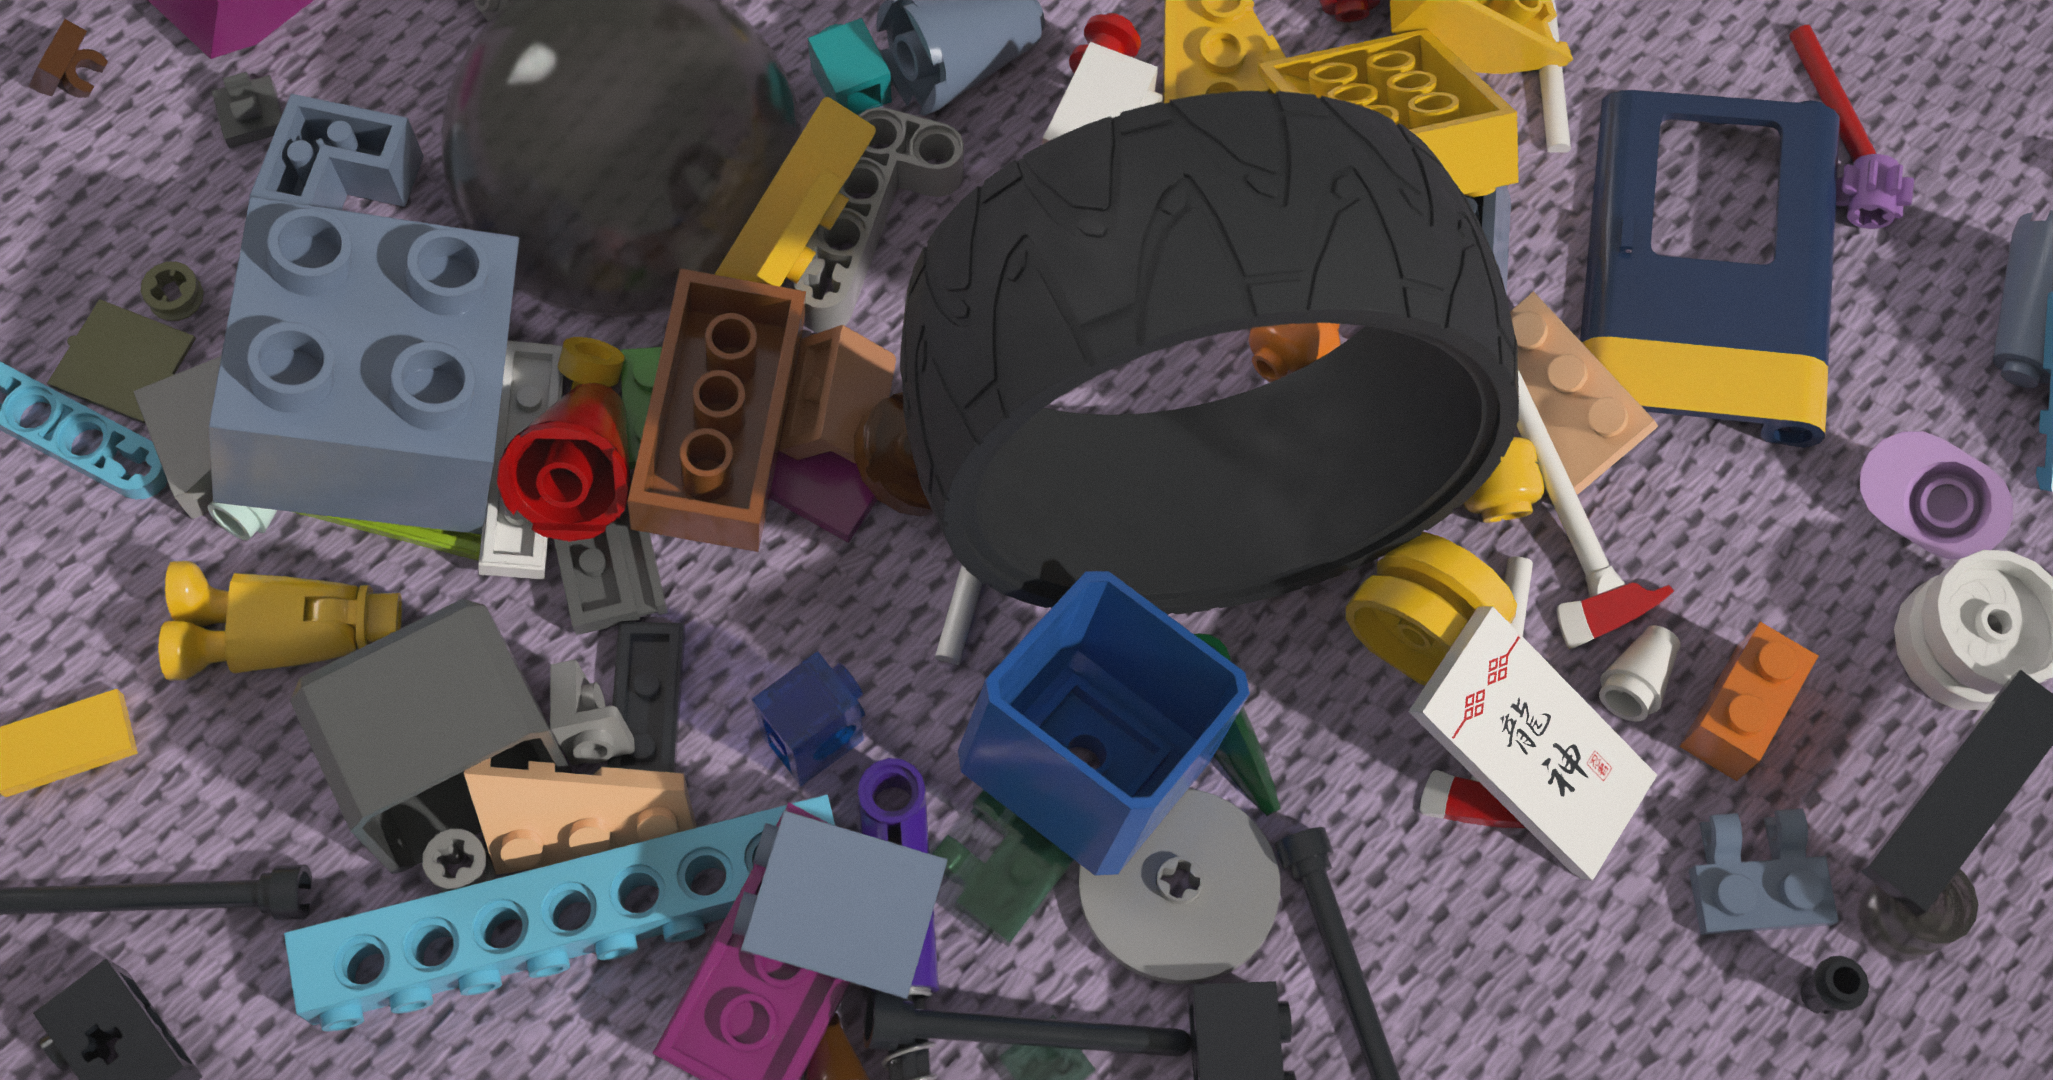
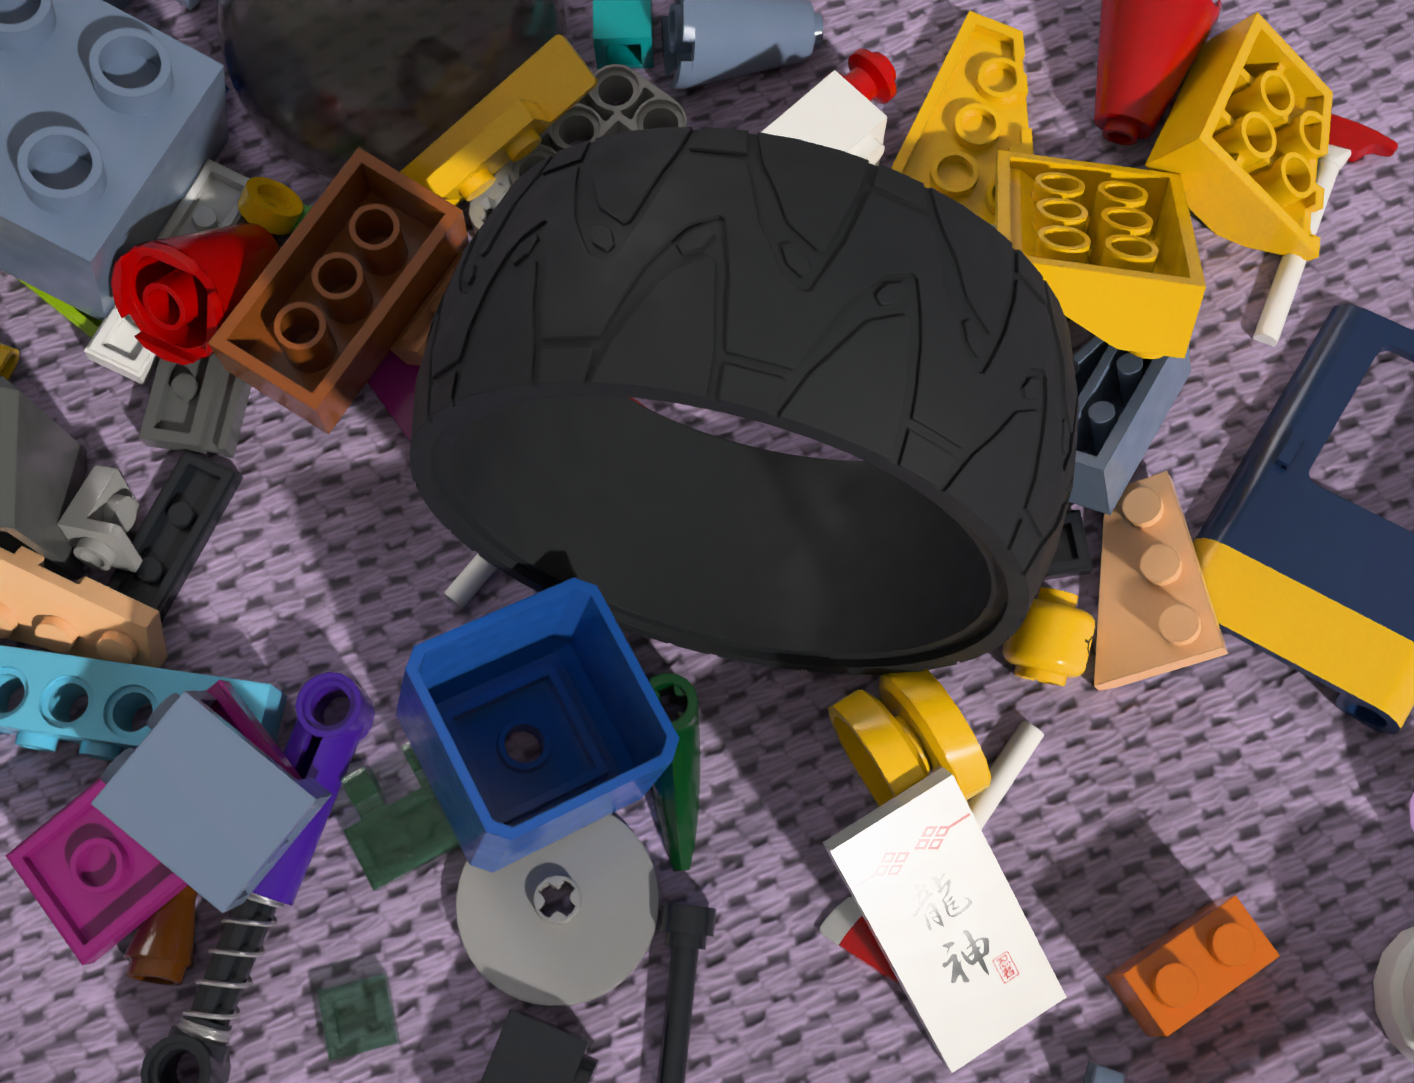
camera: 30 degrees right, 5 degrees up
(811, 716) = (287, 607): clear blue brick -> none
(895, 1022) = (215, 928): black piece -> none
(1610, 599) = (1104, 804): white piece -> none
(1640, 675) = (1096, 891): white cone -> none

